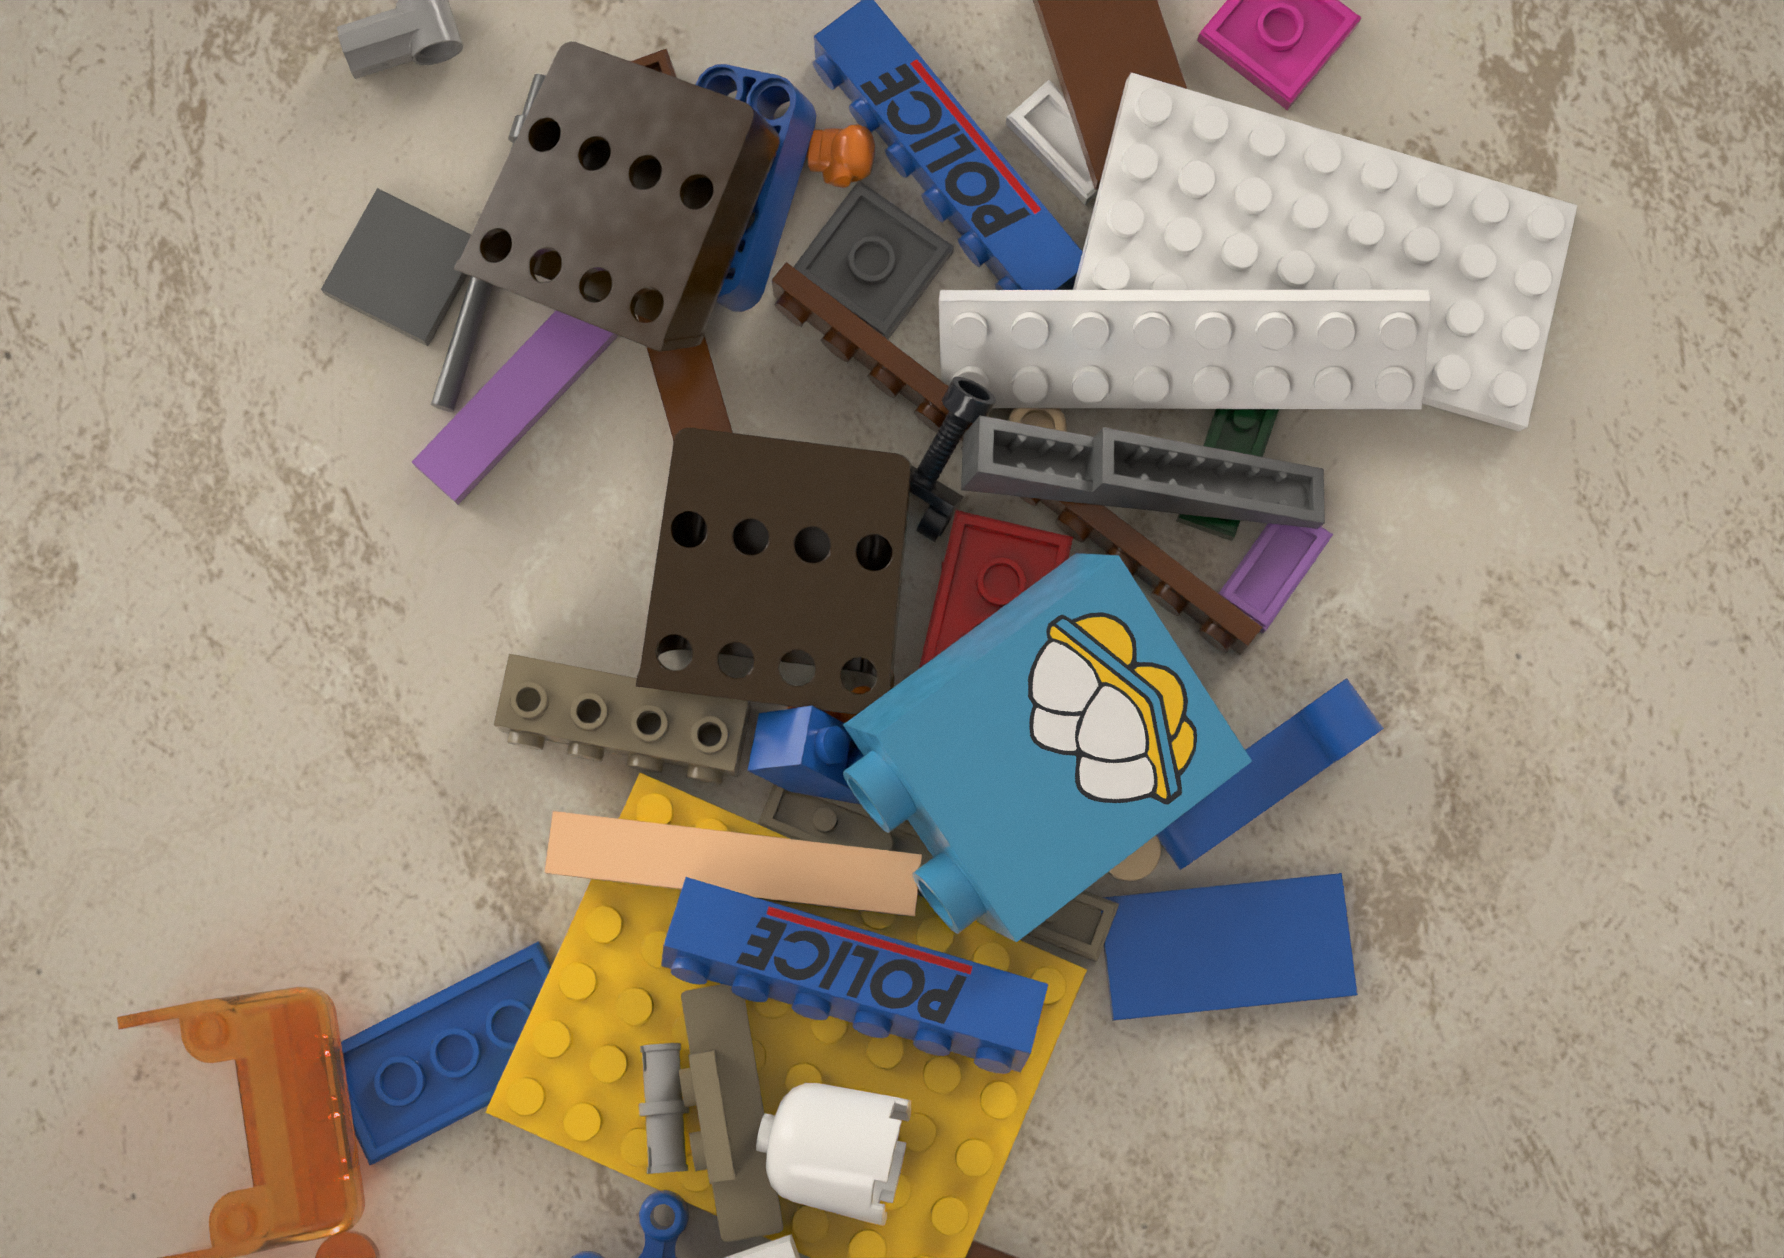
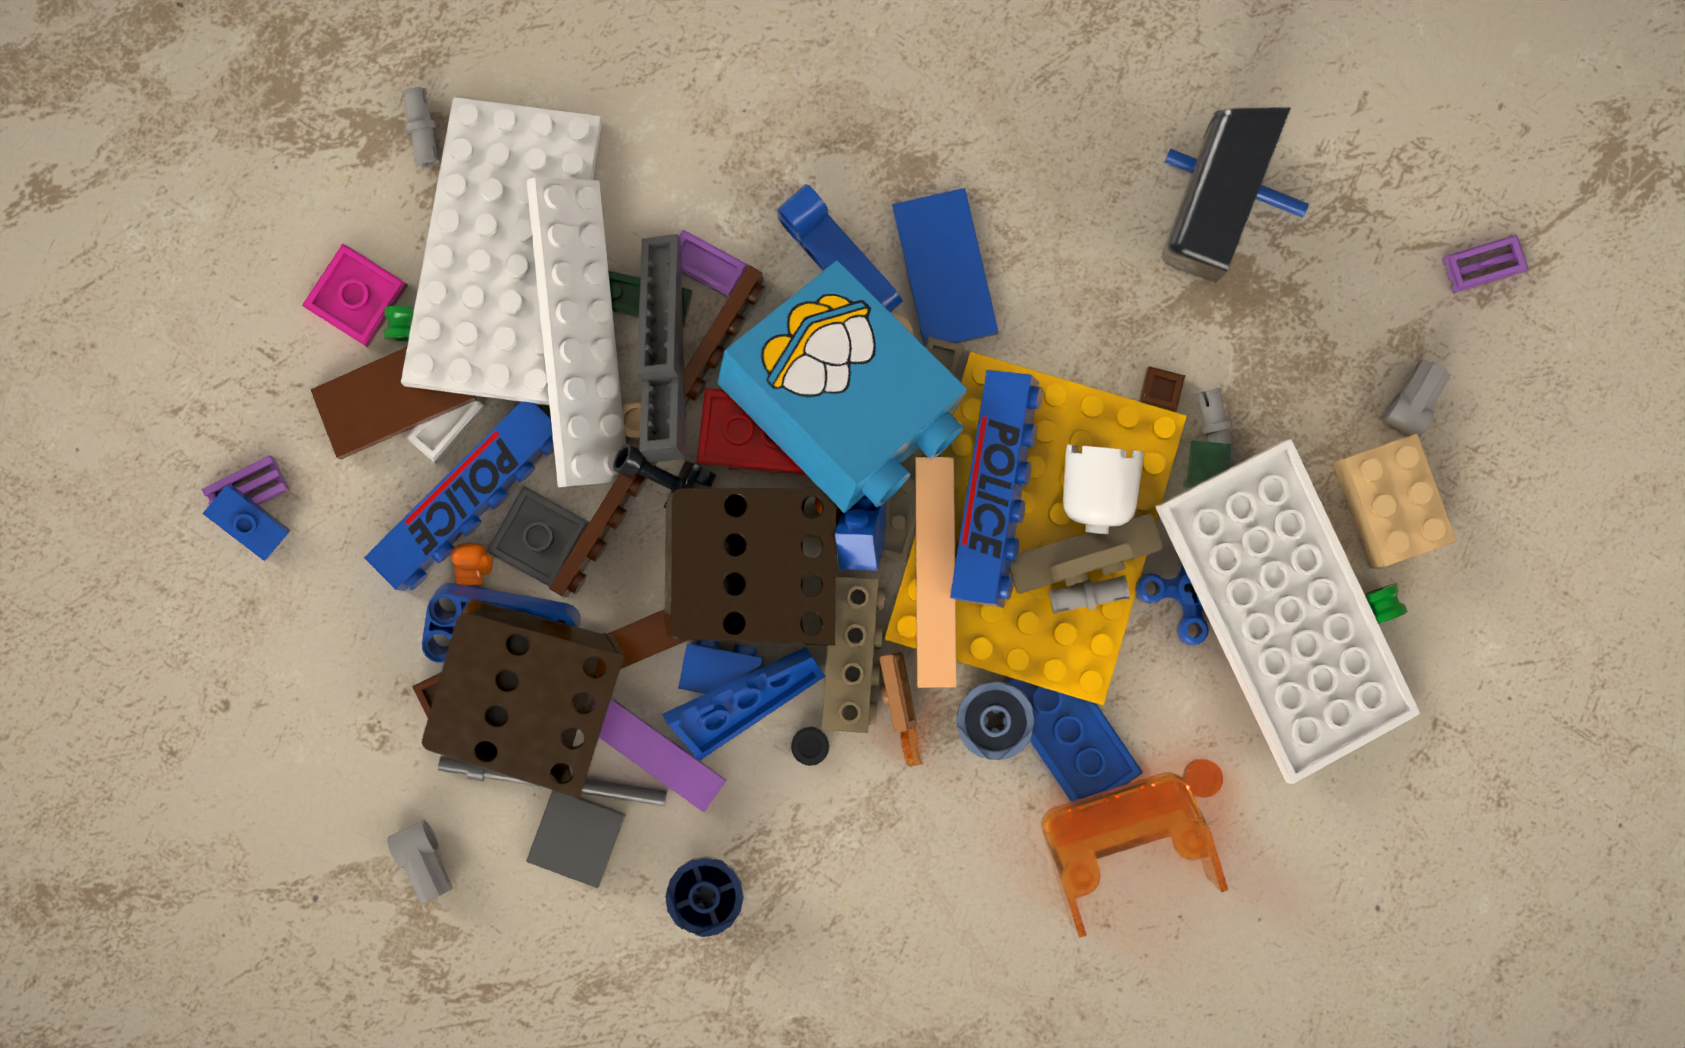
camera: 95 degrees left, 5 degrees up
(278, 443) = (704, 896): none -> dark blue cylinder
(450, 931) = (995, 742): none -> sand blue brick
(464, 796) = (912, 747): none -> clear orange tile
(489, 638) = (810, 746): none -> black tile
(553, 783) = (897, 692): none -> medium nougat plate
(565, 527) = (736, 706): none -> blue wing
(629, 504) = (708, 667): none -> blue slope
(1228, 84) = (398, 323): none -> green wheel
(1533, 152) = (421, 127): none -> light grey pin

